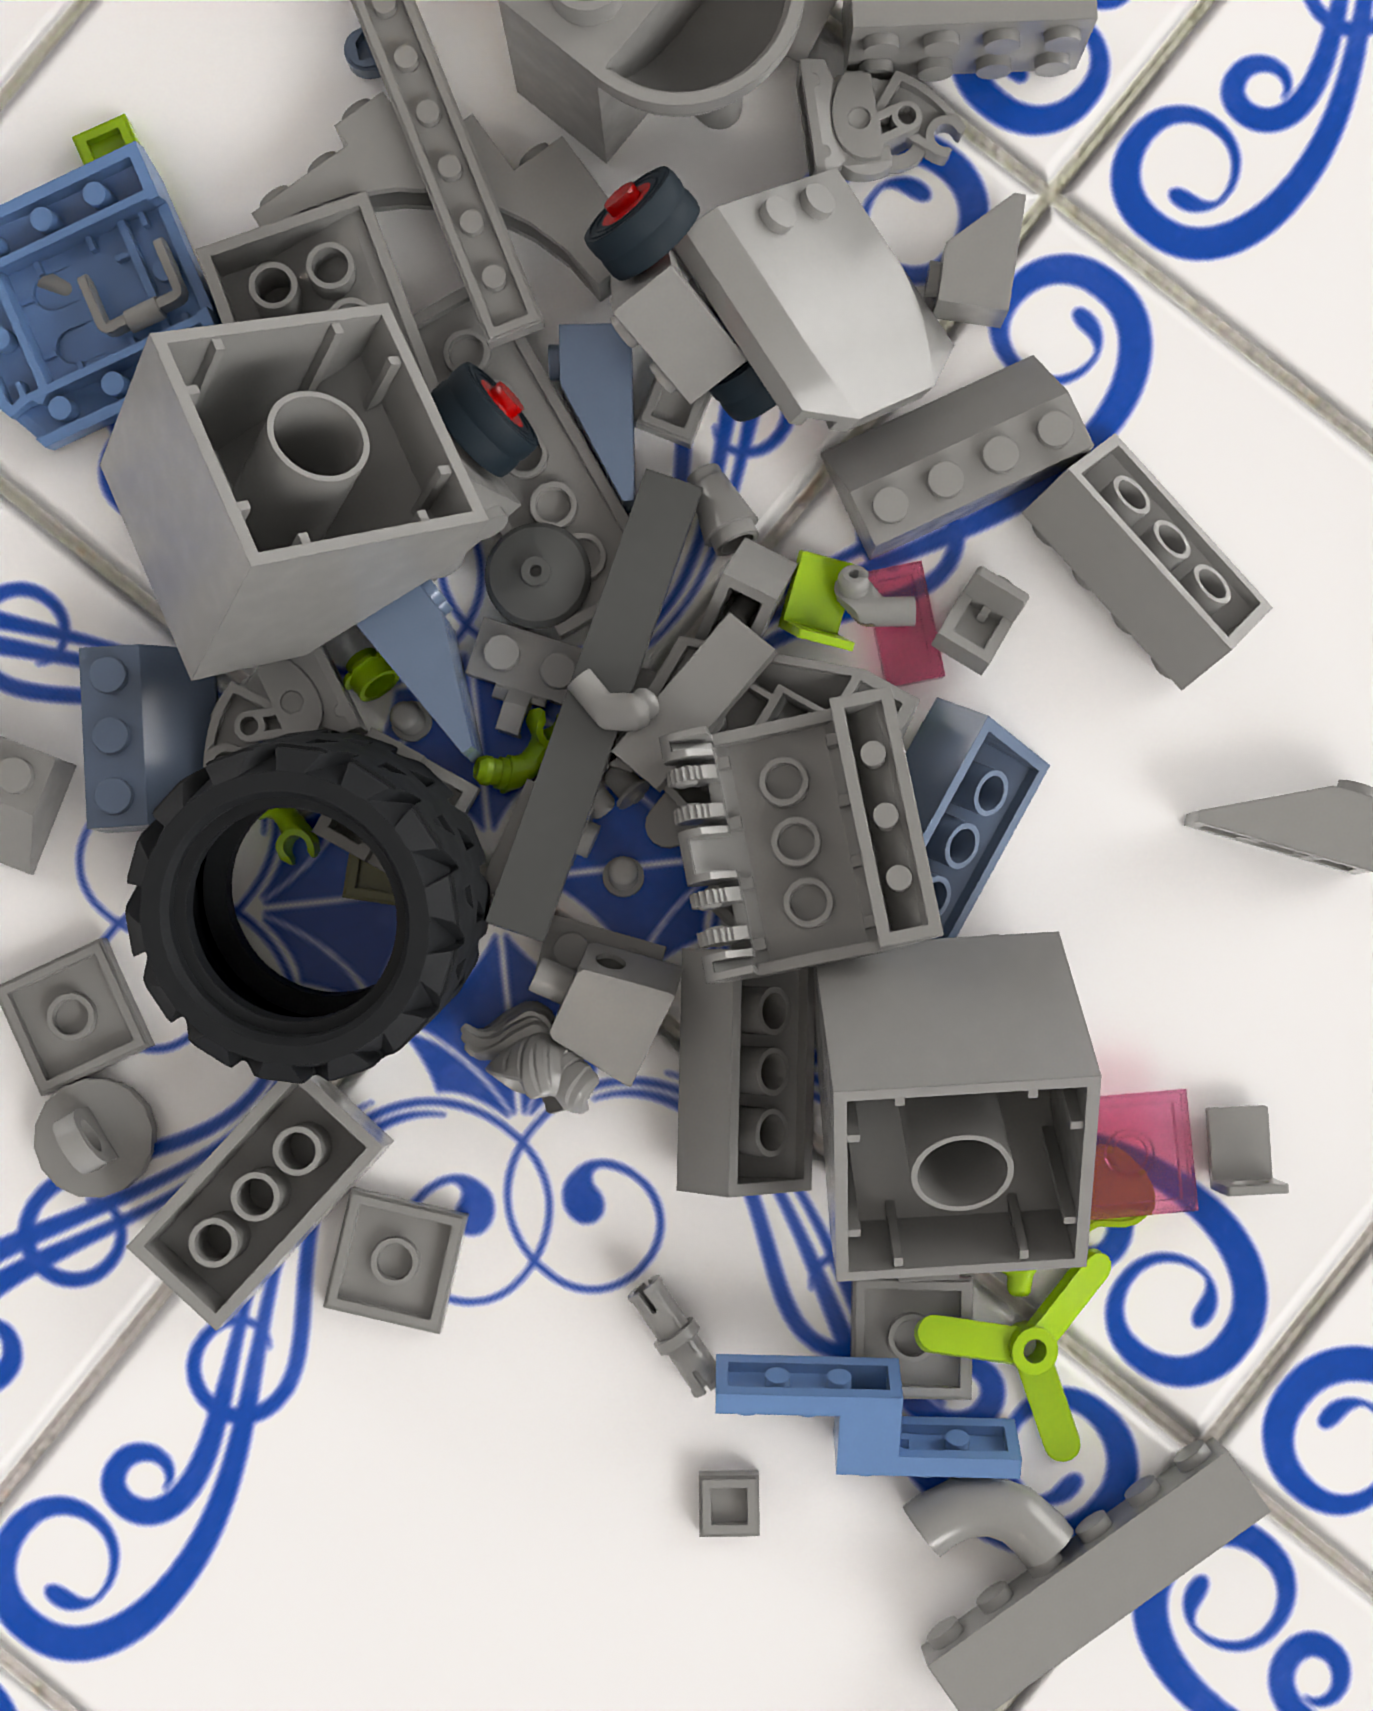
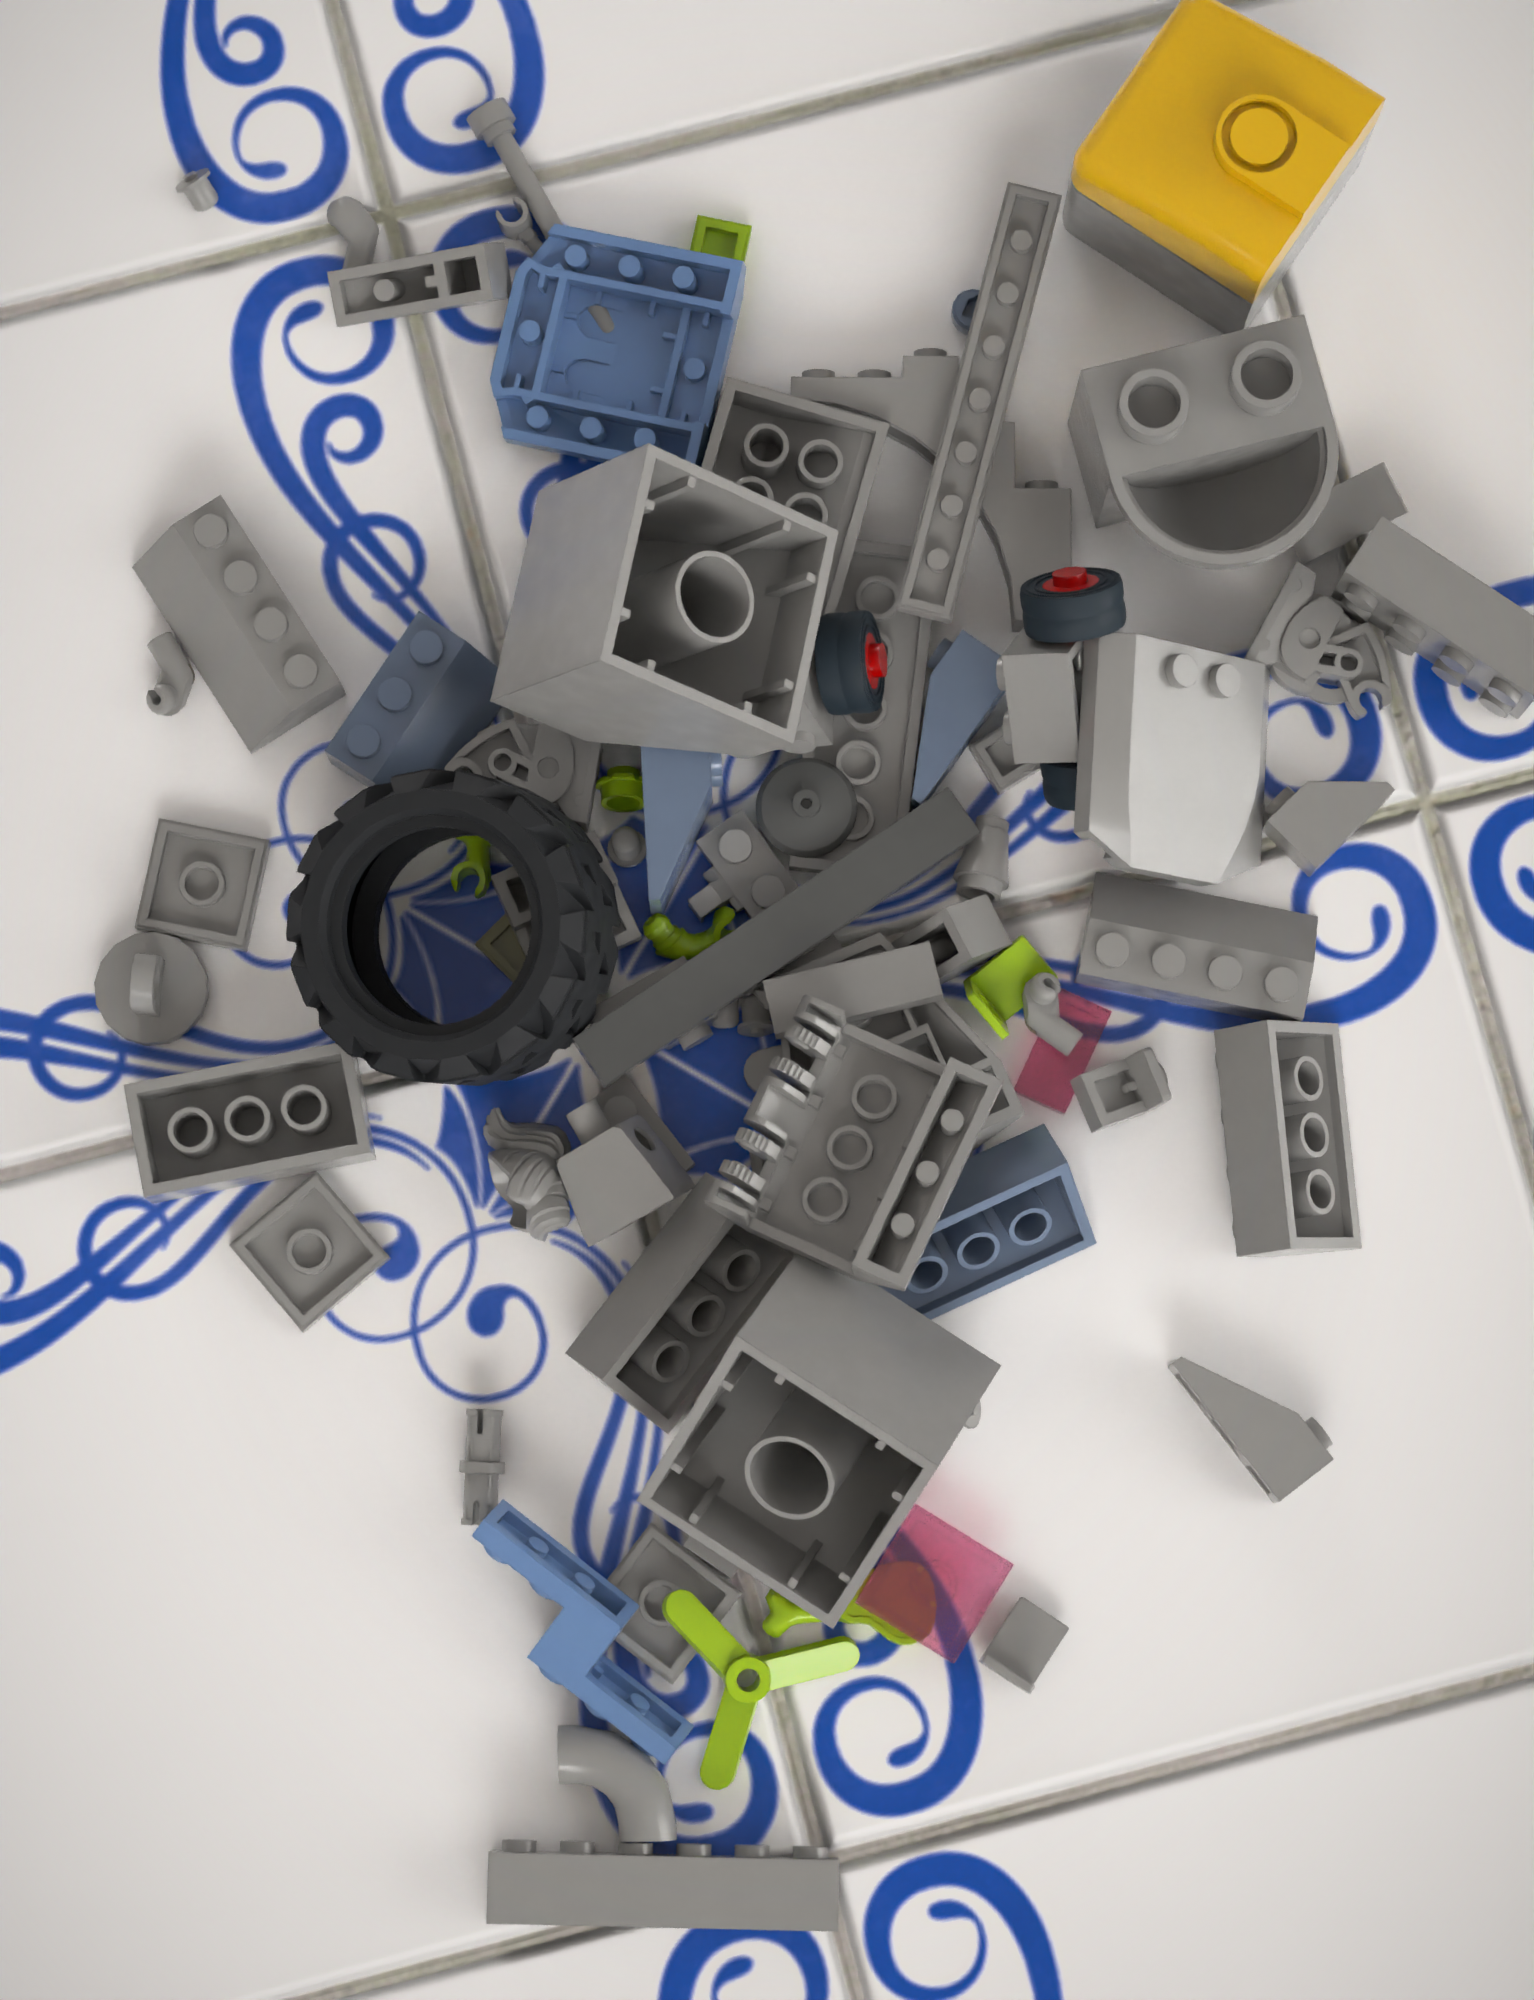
camera: 30 degrees right, 5 degrees down
(146, 312) = (654, 392): light grey piece -> none
(614, 710) = (787, 951): light grey arm -> none
(623, 876) = (702, 1086): light grey piece -> none
(729, 1503) = (426, 1627): light grey tile -> none

